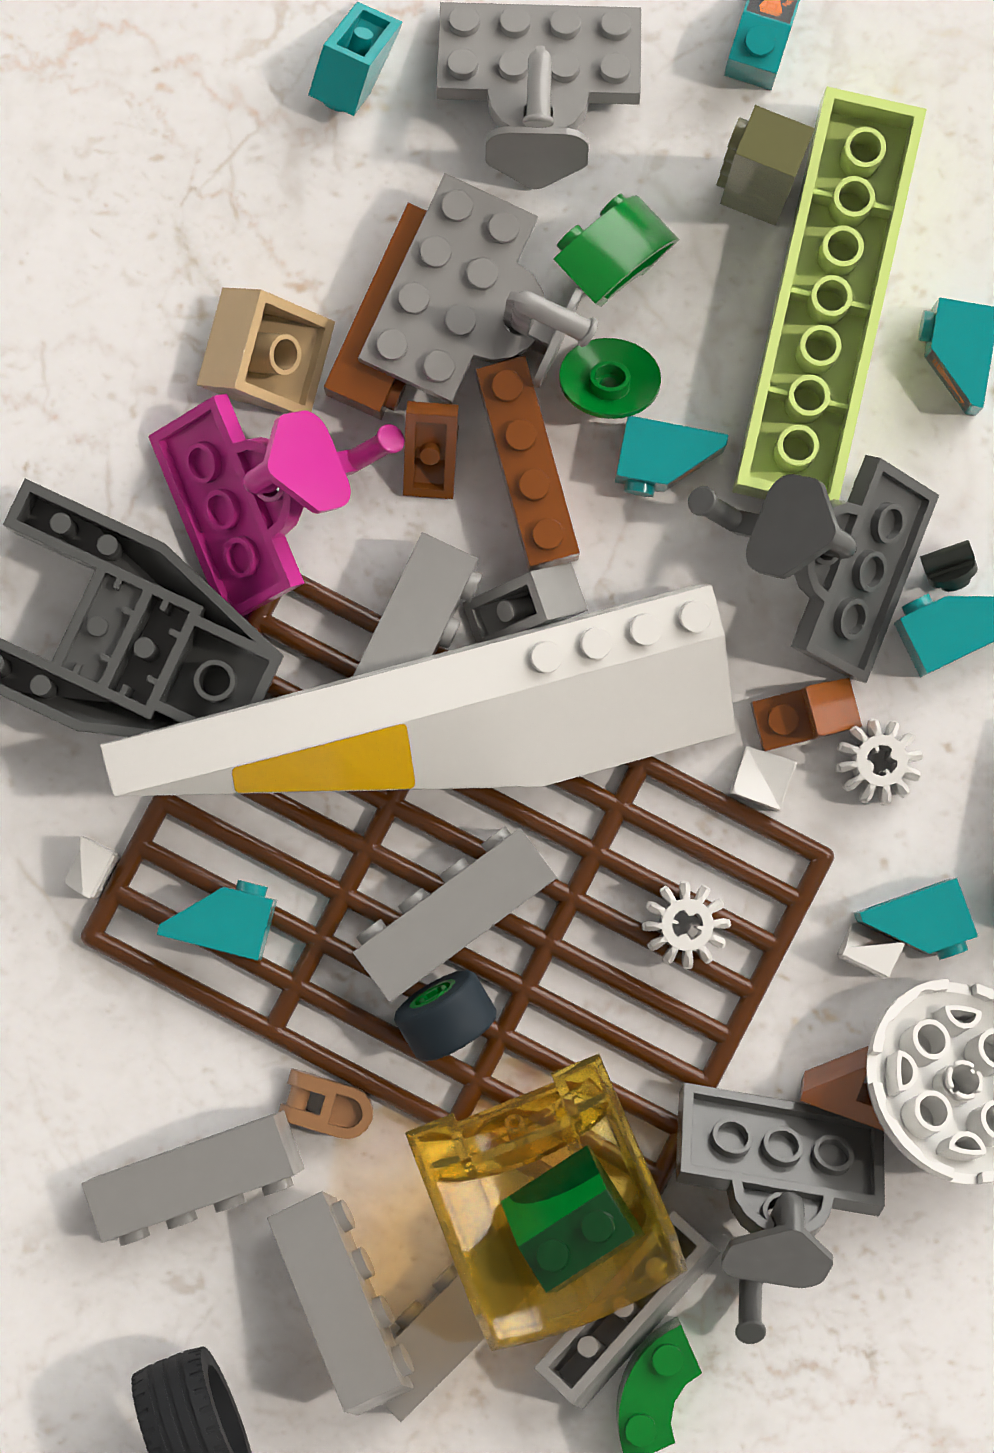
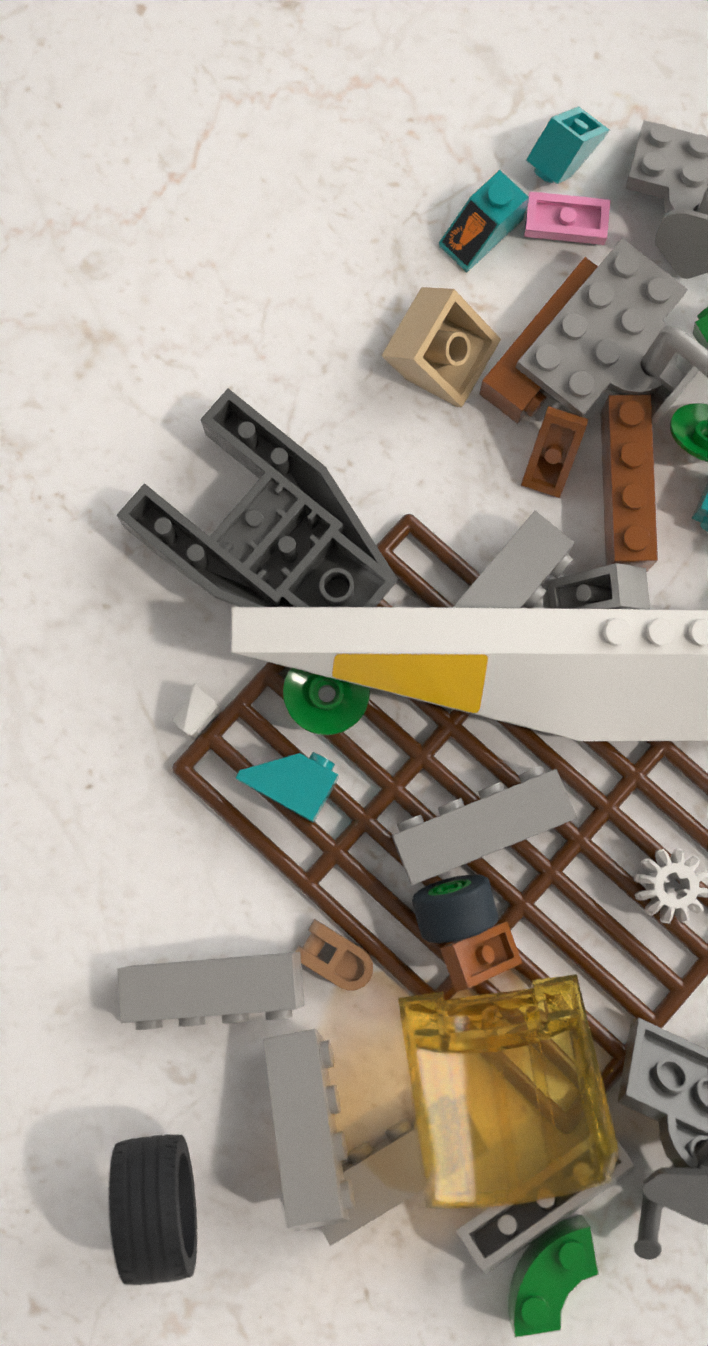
camera: 15 degrees right, 5 degrees down
(231, 496) = (386, 451): dark pink plate -> none
(236, 836) = (322, 717): none -> green dish
(277, 184) = (484, 221): none -> teal slope
(376, 152) = (567, 218): none -> bright pink plate
(488, 1061) = (481, 956): none -> dark orange slope
(570, 1220) = (520, 1110): dark green slope -> none

